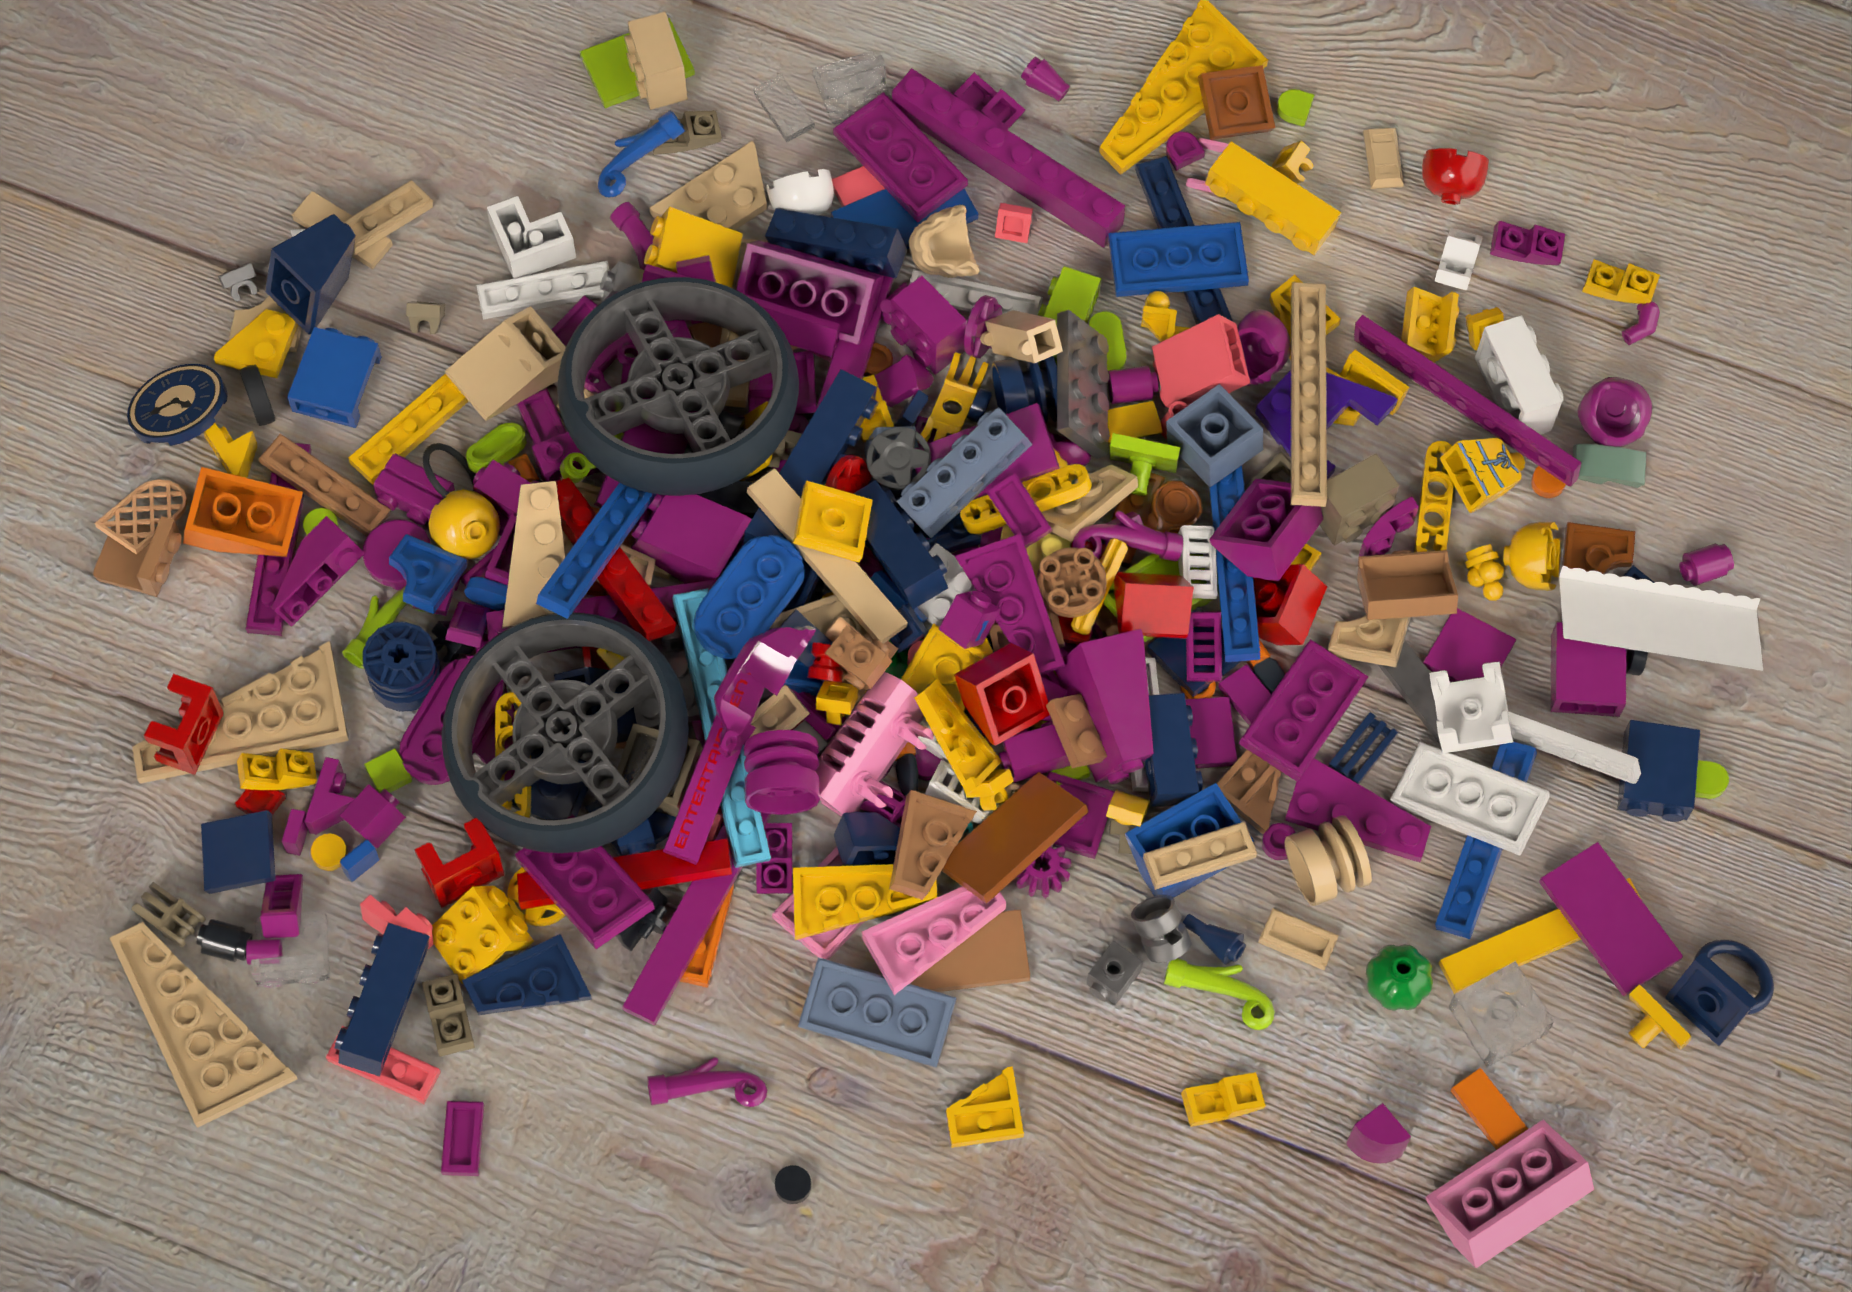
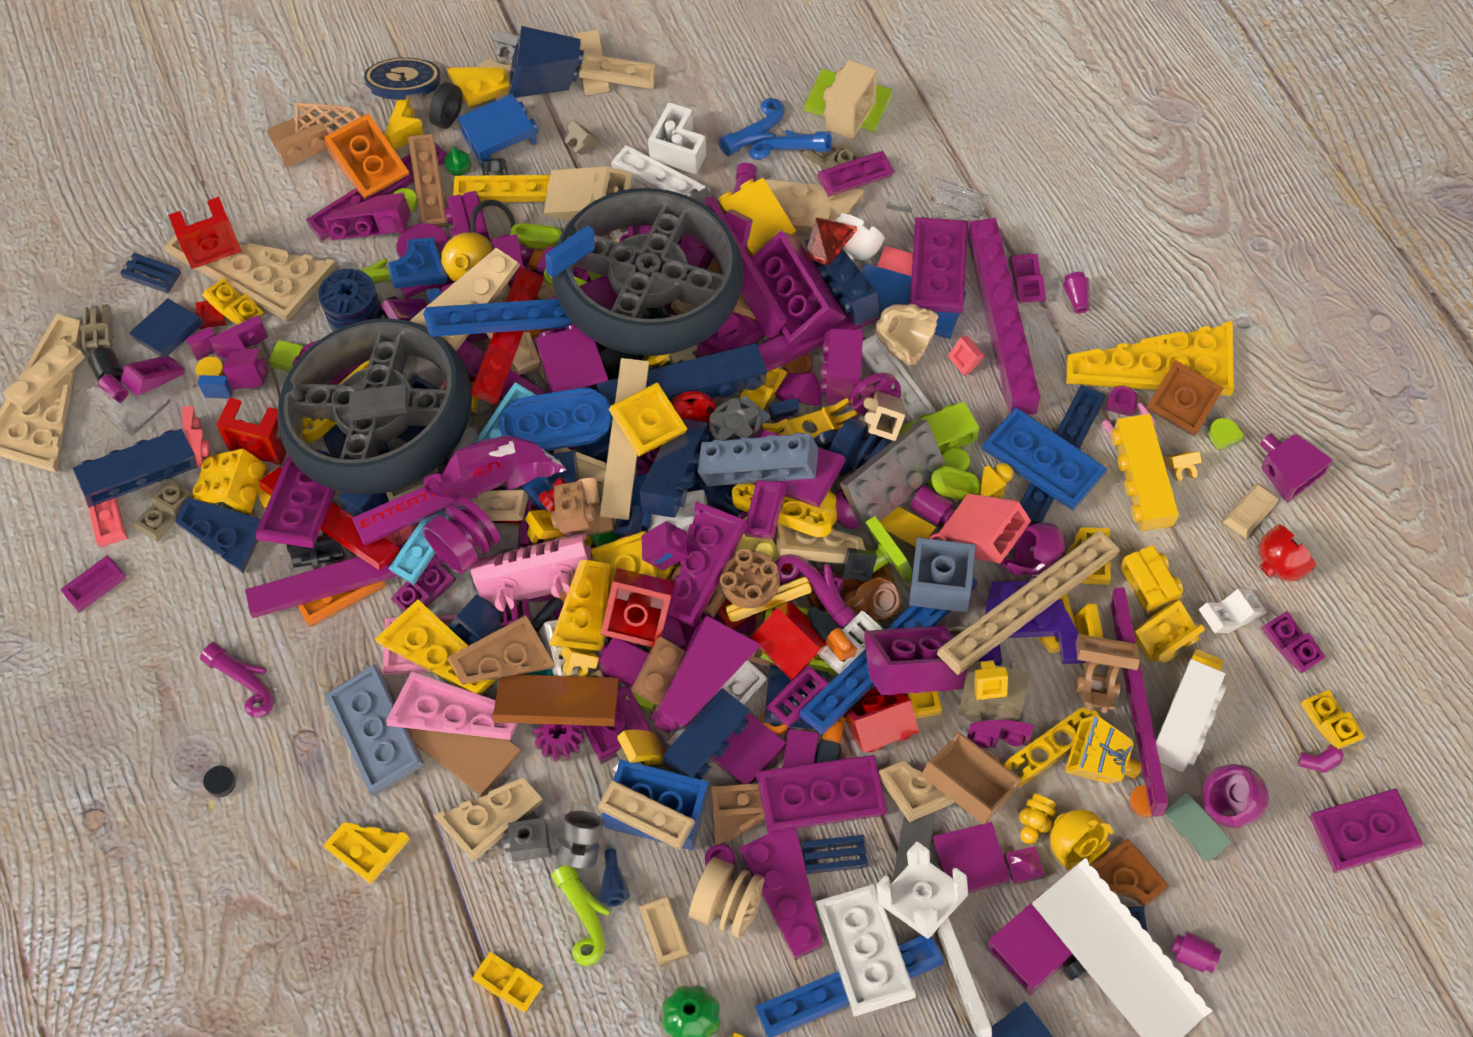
camera: 50 degrees right, 5 degrees down
(144, 805) = (153, 269): none -> dark blue tile
(178, 1002) = (43, 375): none -> tan plate
(328, 443) = (457, 162): none -> green tile
(373, 415) = (494, 165): none -> black tile
(578, 196) = (733, 142): none -> blue plant
(587, 720) = (378, 402): none -> flat silver tile
(614, 426) = (570, 251): none -> blue tile
(731, 131) = (855, 173): none -> magenta tile
(798, 216) = (828, 239): none -> clear red slope
(1059, 989) = (484, 821): none -> tan wing
(1131, 346) = (955, 482): none -> lime tile
(1137, 488) = (858, 564): none -> black tile
(1190, 568) = (834, 636): none -> piece
(1359, 486) = (990, 681): none -> yellow tile
(1371, 289) = (1151, 579): none -> yellow brick
(1379, 87) = (1293, 464): none -> magenta torso
(1428, 419) = (1100, 690): none -> medium nougat tile
(1514, 618) = (1024, 865): none -> magenta tile
(1727, 351) = (1365, 830): none -> magenta tile

